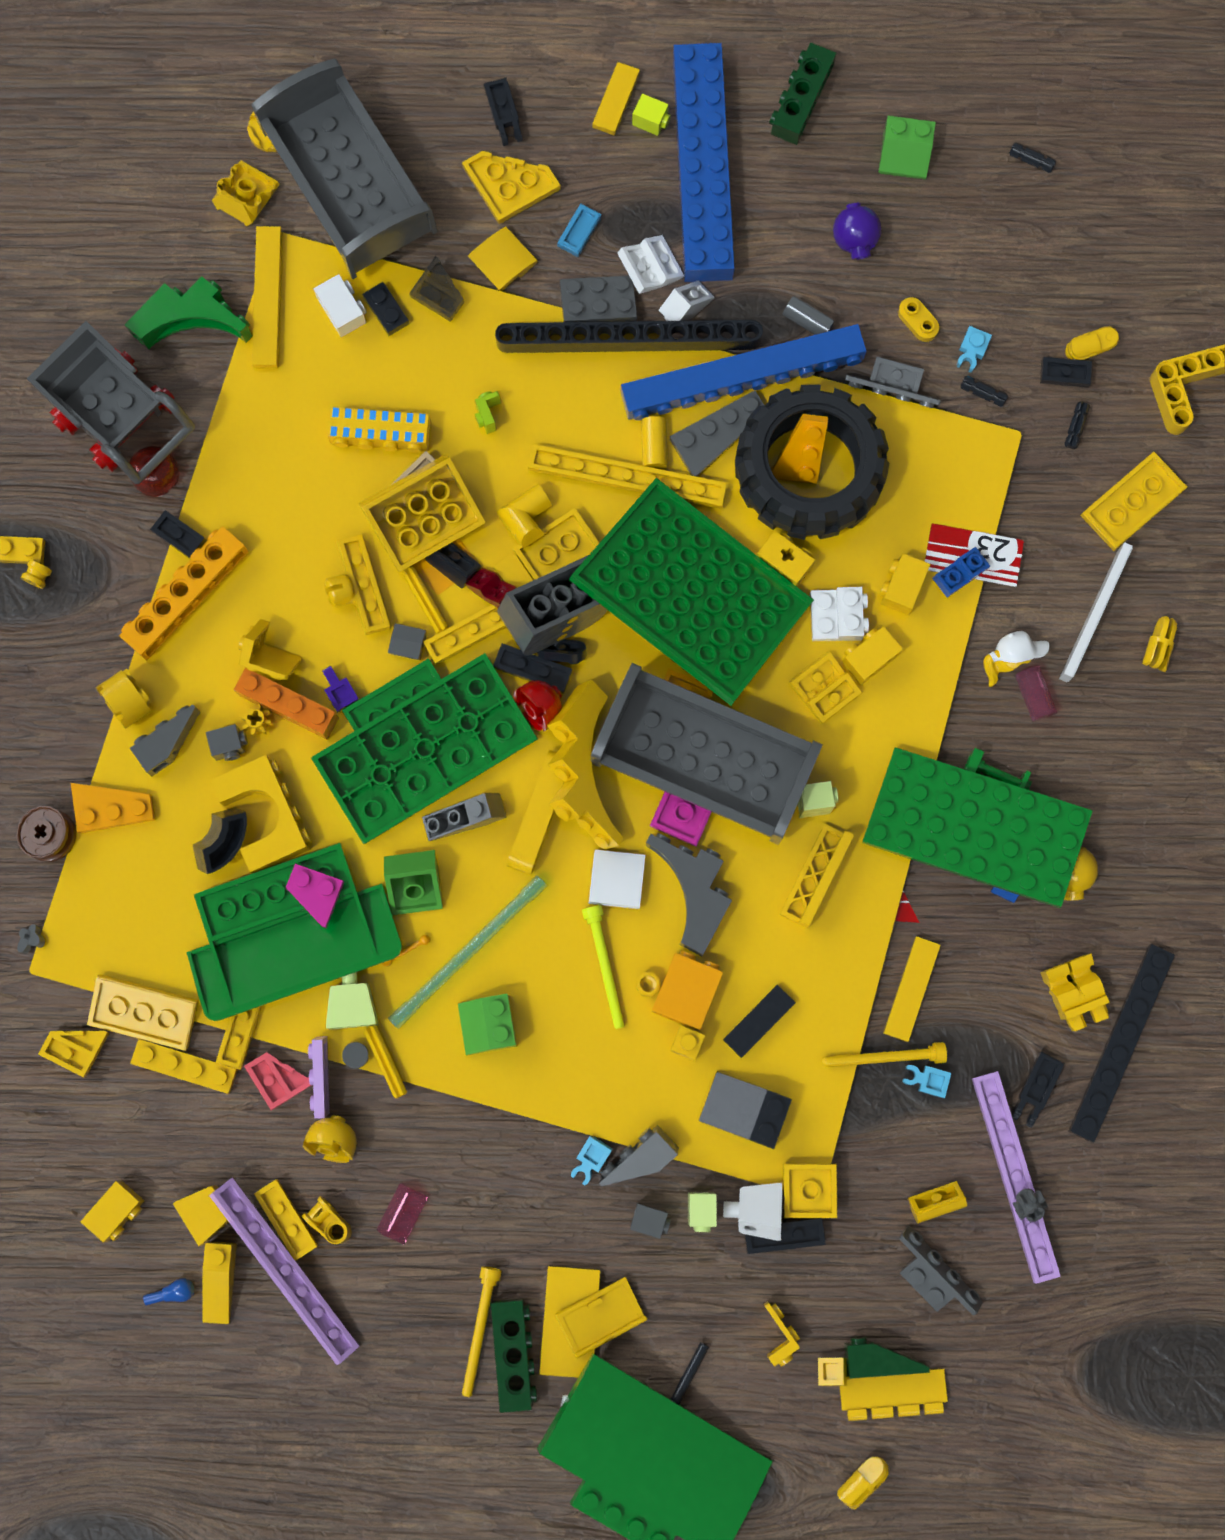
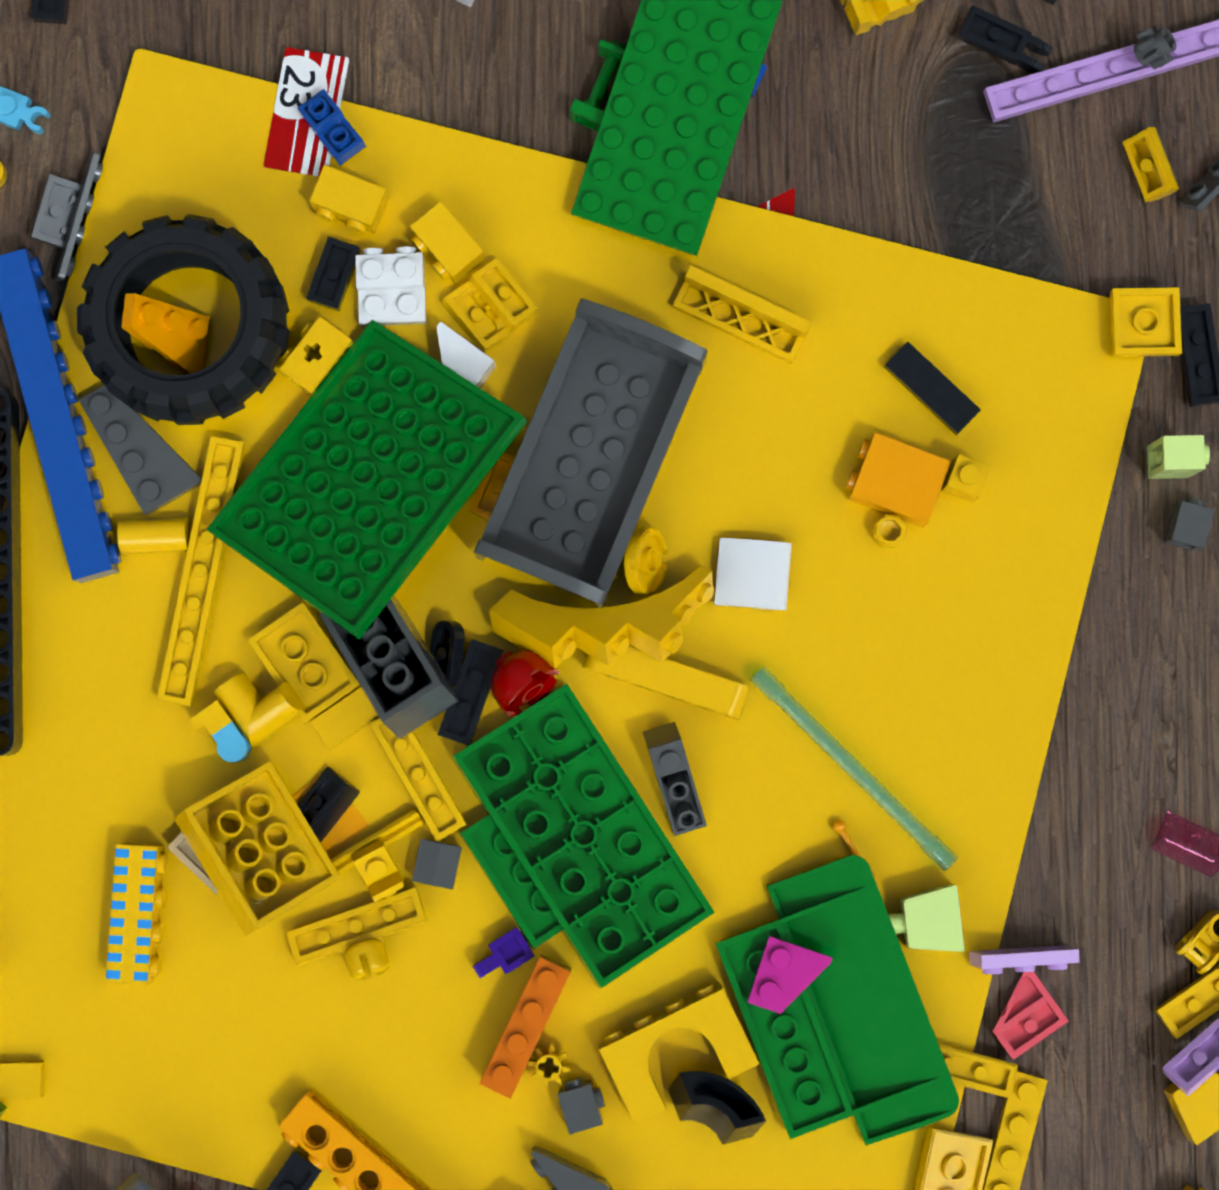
camera: 90 degrees left, 5 degrees up
(264, 658) = (463, 1056): yellow bracket -> none
(331, 1138) = (1103, 938): yellow cylinder -> none
(355, 1055) = (993, 912): dark grey tile -> none
(385, 1061) = (1001, 871): yellow axle -> none
(403, 599) = (378, 870): none -> yellow bracket
(412, 882) = (764, 844): bright green slope -> none
(484, 416) = (117, 768): lime bracket -> none
(487, 1024) = (949, 739): bright green slope -> none
(489, 586) = (362, 749): dark red slope -> none
(501, 495) = (230, 741): none -> leg
(592, 1157) = (1111, 599): medium azure plate -> none
(594, 917) = (804, 603): neon yellow piece -> none
(627, 796) = (644, 560): none -> yellow tile
(645, 1158) = (1113, 531): slope -> none
(680, 819) = (673, 493): dark pink plate -> none
(703, 905) = (747, 469): dark grey arch -> none
(745, 1110) = (1048, 403): slope -> none
(758, 1210) = (1173, 386): white torso -> none
(782, 665) = (463, 356): none -> white slope
(817, 799) = (646, 304): yellowish green brick -> none
(848, 572) = (333, 274): none -> black plate
(911, 989) = (882, 196): yellow tile -> none
(931, 1081) = (999, 171): medium azure plate -> none
(935, 1053) = (963, 165): yellow piece -> none
(984, 391) = (77, 97): black axle -> none
(1012, 652) = (441, 62): white hair -> none
(1036, 693) = (492, 35): clear pink brick -> none

